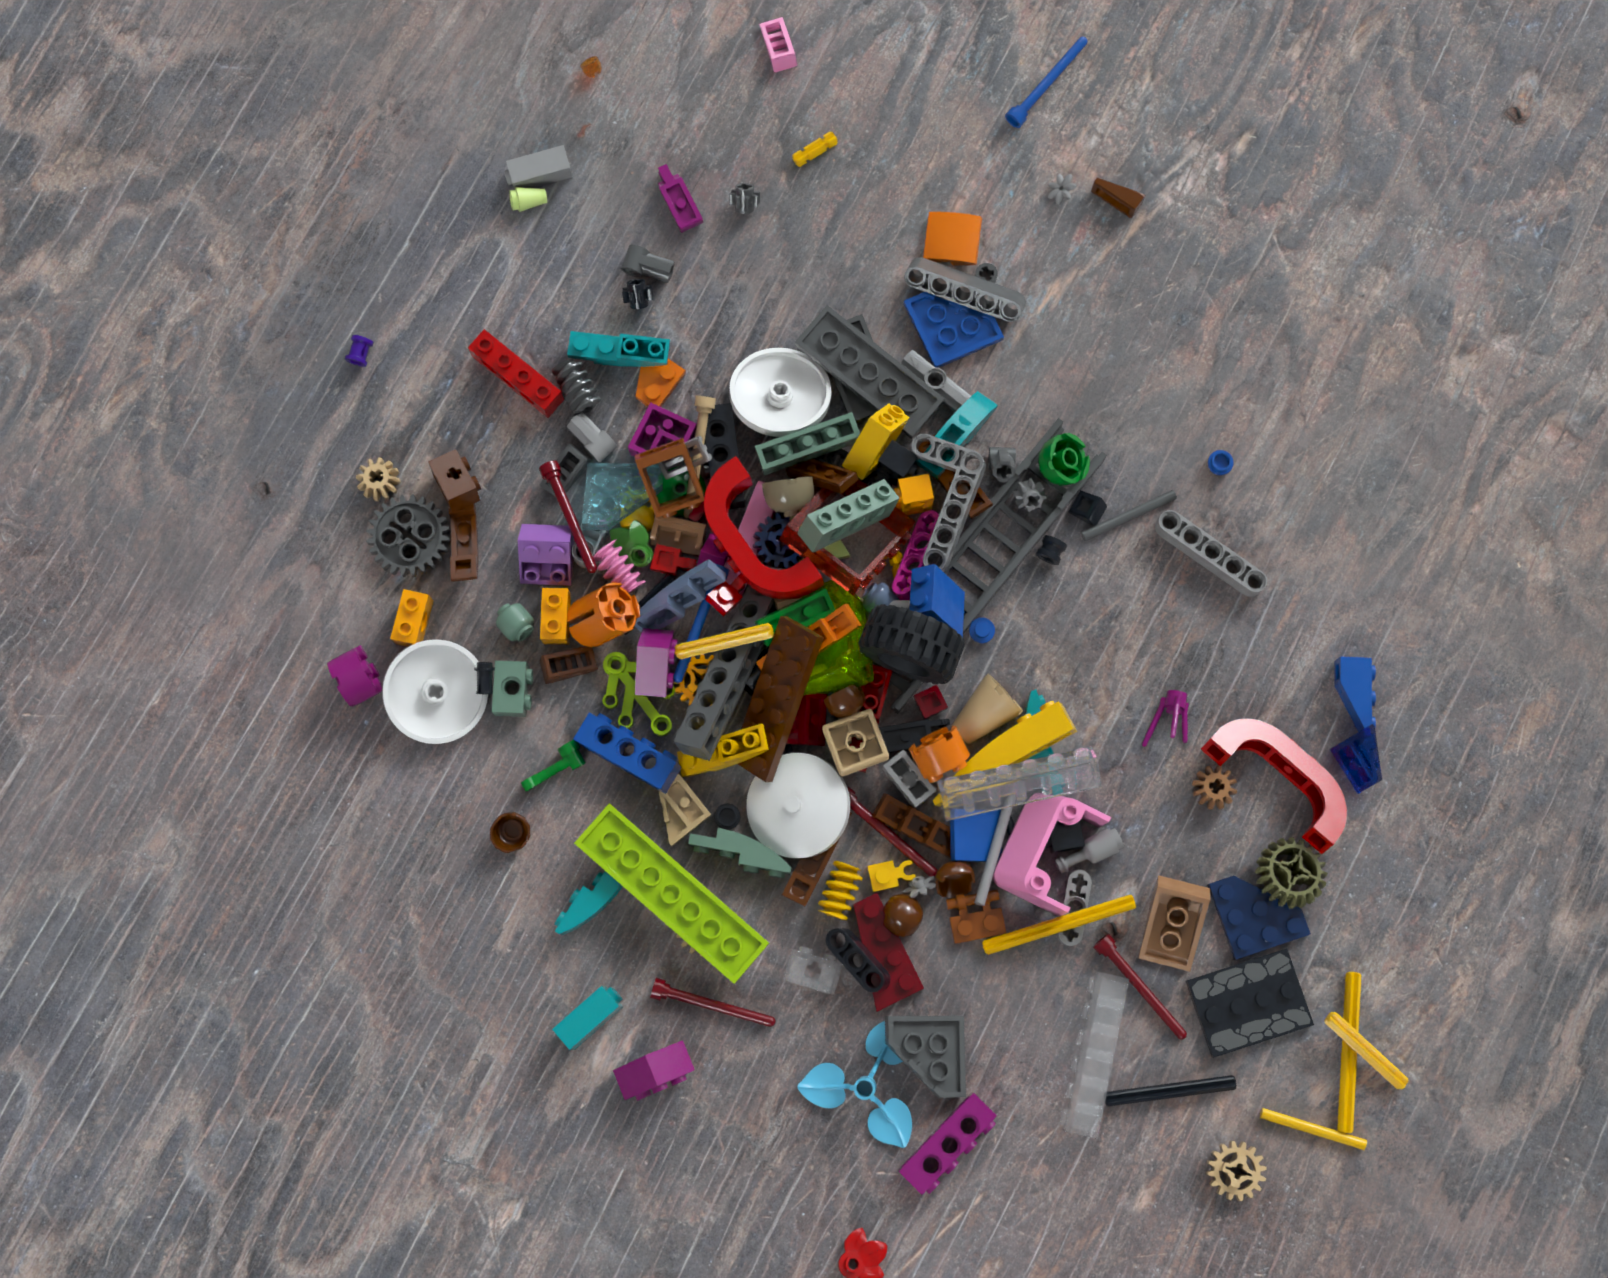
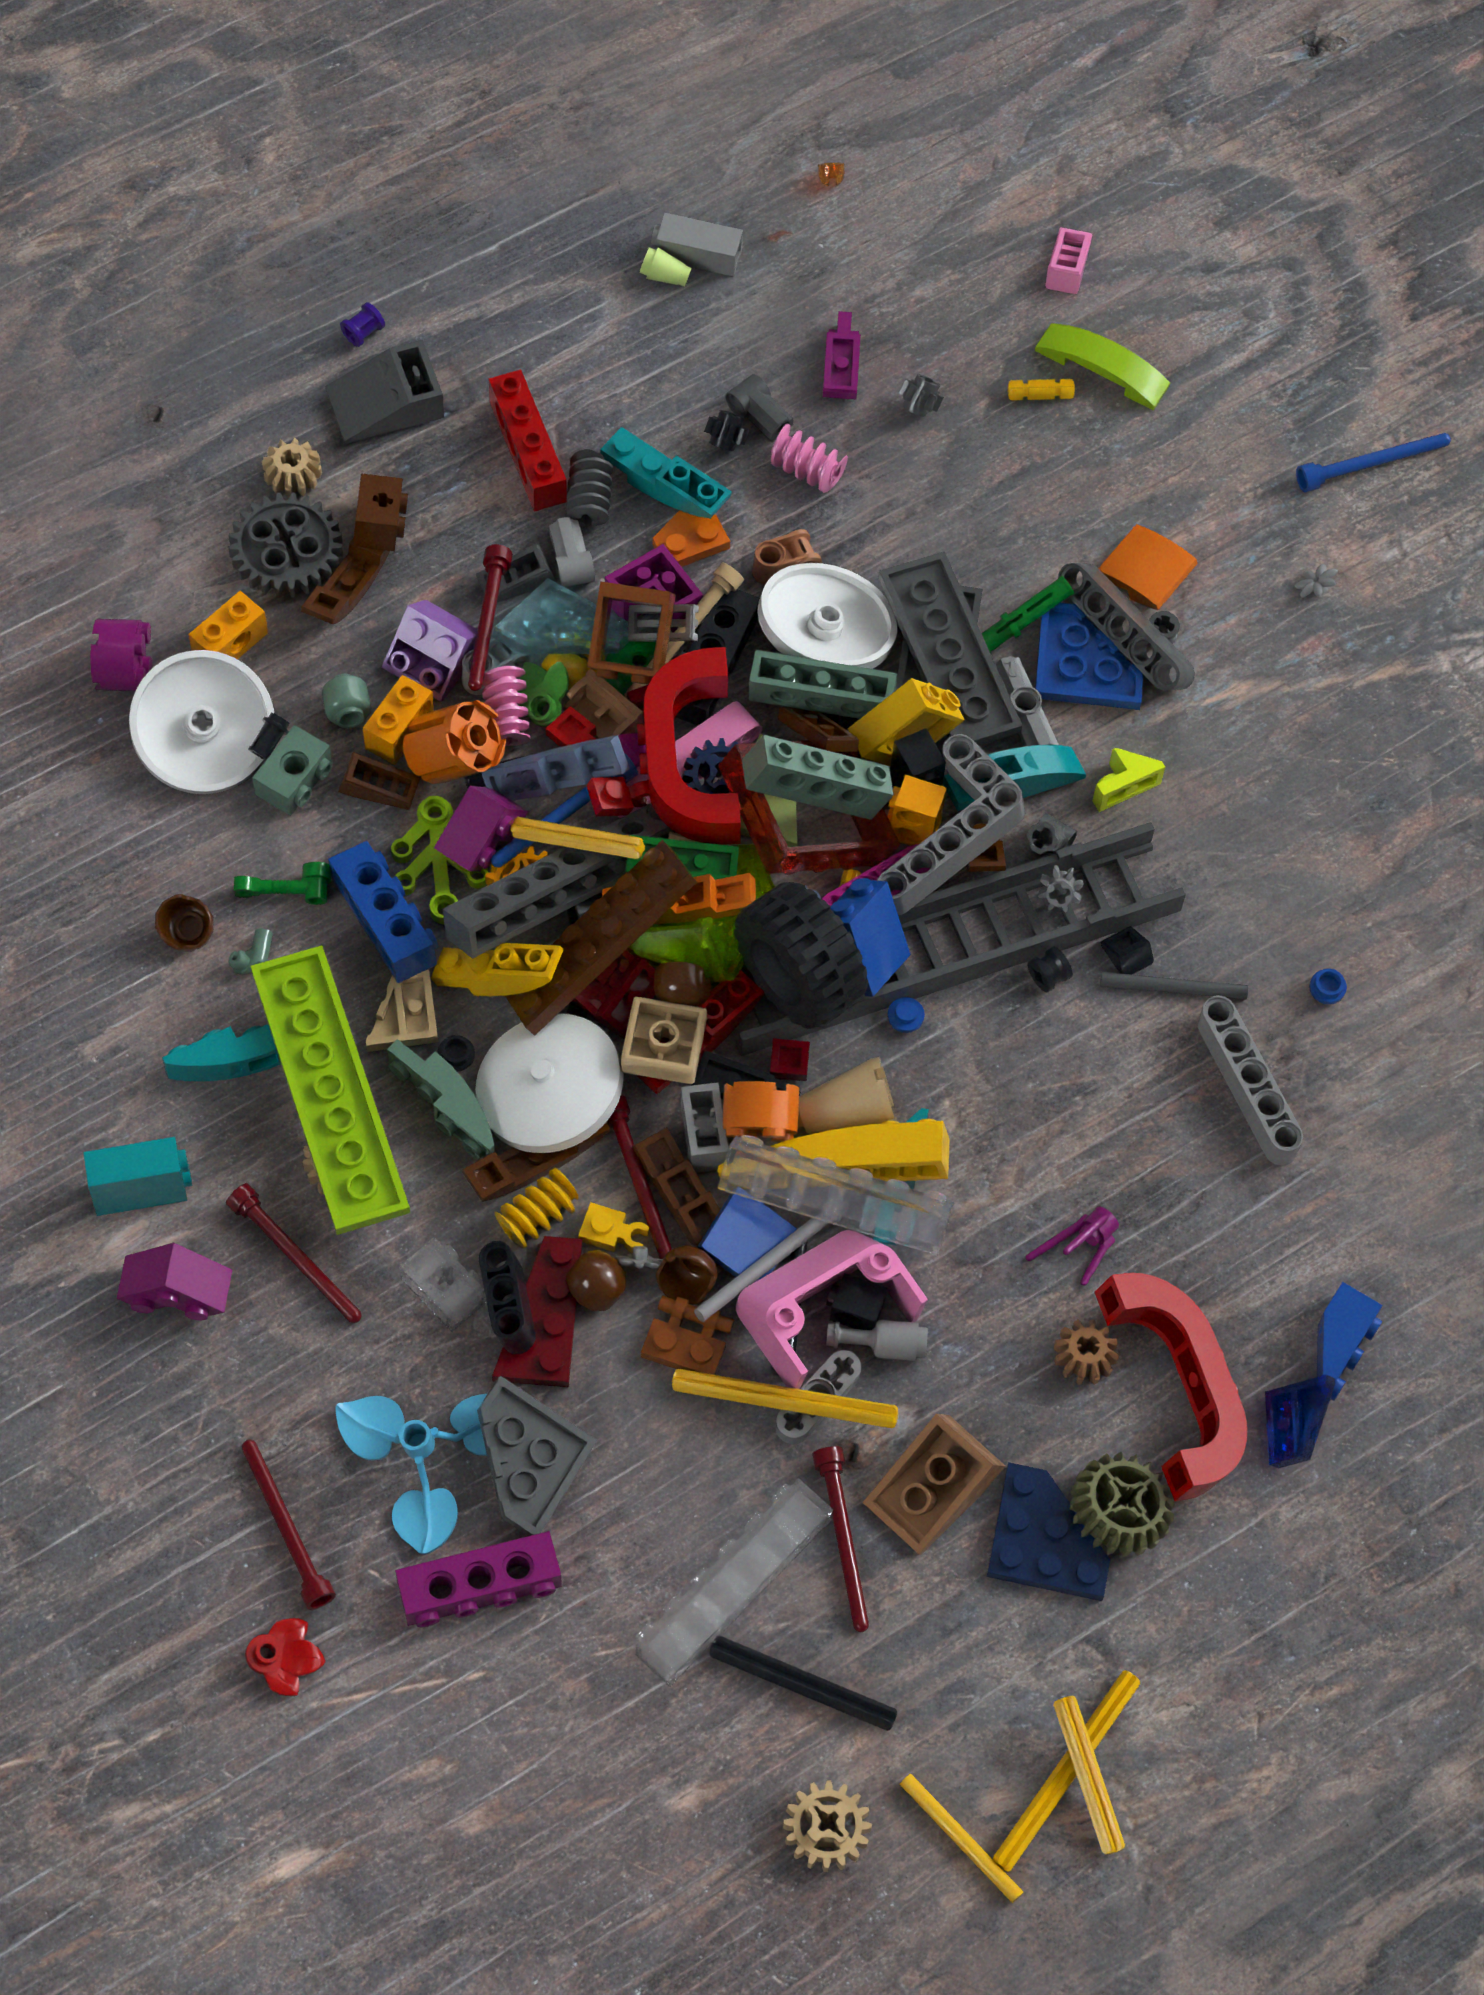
camera: 25 degrees right, 15 degrees down
(406, 393) = (387, 393): none -> dark grey slope
(565, 826) = (259, 953): none -> sand green arm
(699, 285) = (807, 461): none -> bright pink piece
(727, 358) = (783, 552): none -> nougat piece
(788, 495) = (754, 716): dark tan cylinder -> none
(842, 104) = (1107, 359): none -> lime slope
(854, 1205) = (316, 1589): none -> dark red piece
(912, 290) = (1025, 614): none -> green pin
(1026, 388) = (1131, 776): none -> neon yellow slope
(1063, 460) = (1127, 867): green cylinder -> none
(1120, 197) = (1386, 630): reddish brown slope -> none
(1249, 1003) = (973, 1637): black plate -> none

